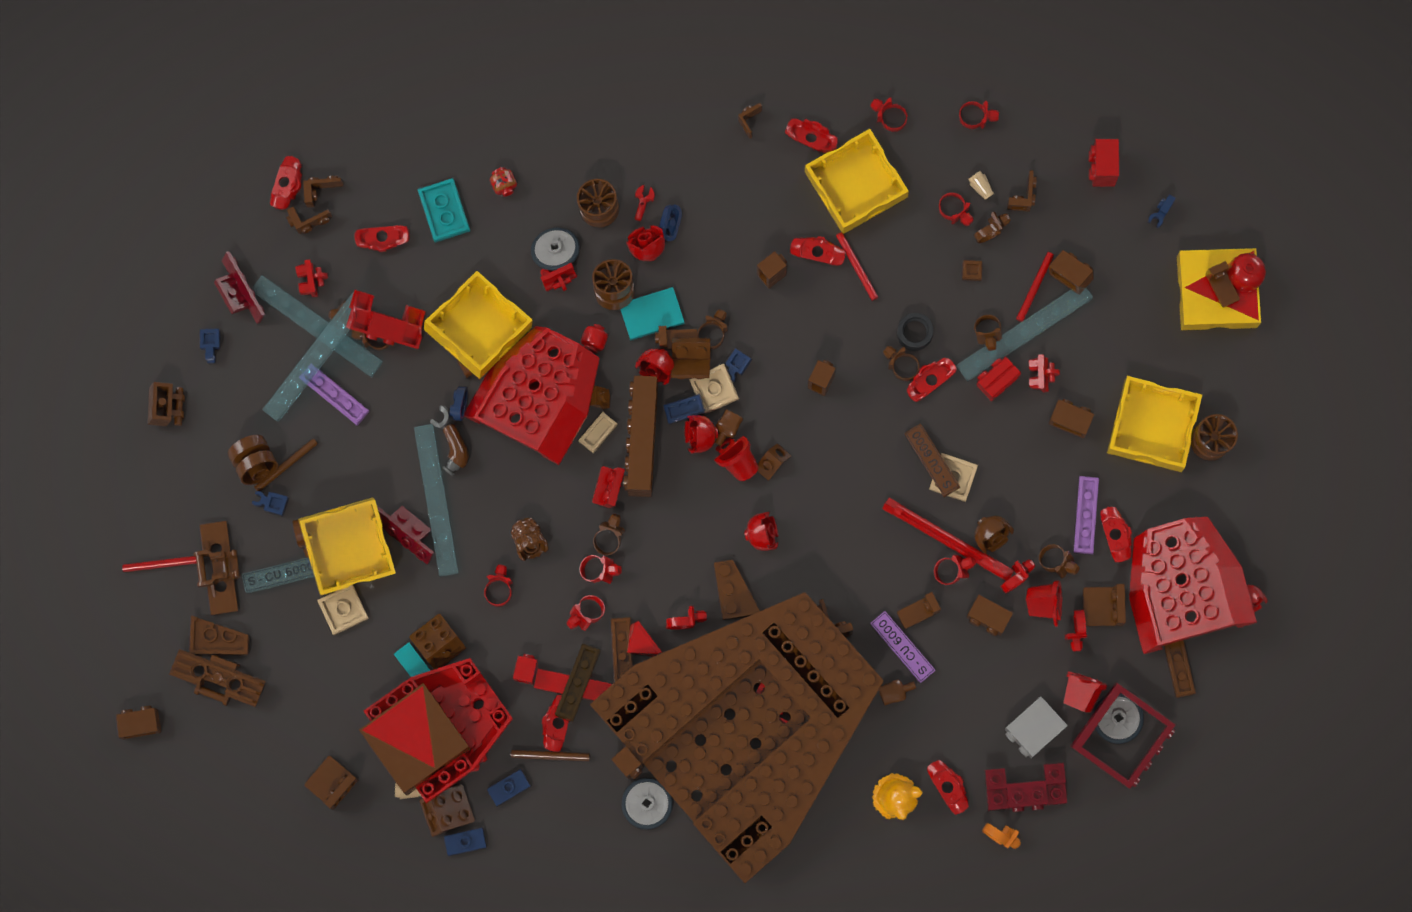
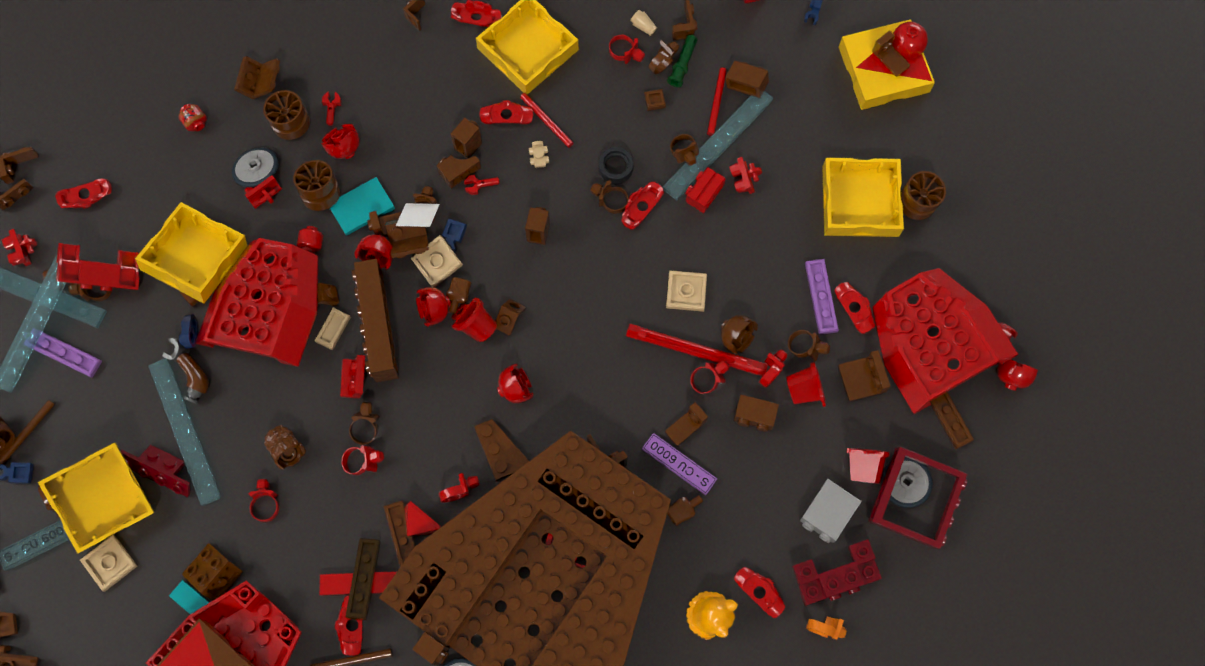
camera: 20 degrees left, 5 degrees down
(443, 210) = (140, 156): teal tile -> none
(525, 669) = (307, 578): red brick -> none
(576, 155) = (256, 78): none -> reddish brown bracket
(578, 619) = (350, 514): red piece -> none
(670, 221) = (361, 121): dark blue plate -> none
(683, 408) = (408, 288): dark blue plate -> none
(706, 338) = (417, 215): none -> white sticker
(753, 299) = (457, 170): none -> reddish brown arch
(774, 318) = (479, 183): none -> red bar
(840, 298) = (538, 152): none -> tan piece
(932, 460) = (662, 279): reddish brown tile -> none
(1007, 242) = (680, 67): none -> dark green pin
(1071, 418) = (783, 210): reddish brown brick -> none
(1080, 631) = (847, 405): red piece -> none
(1255, 640) = (1016, 374): none -> red cylinder

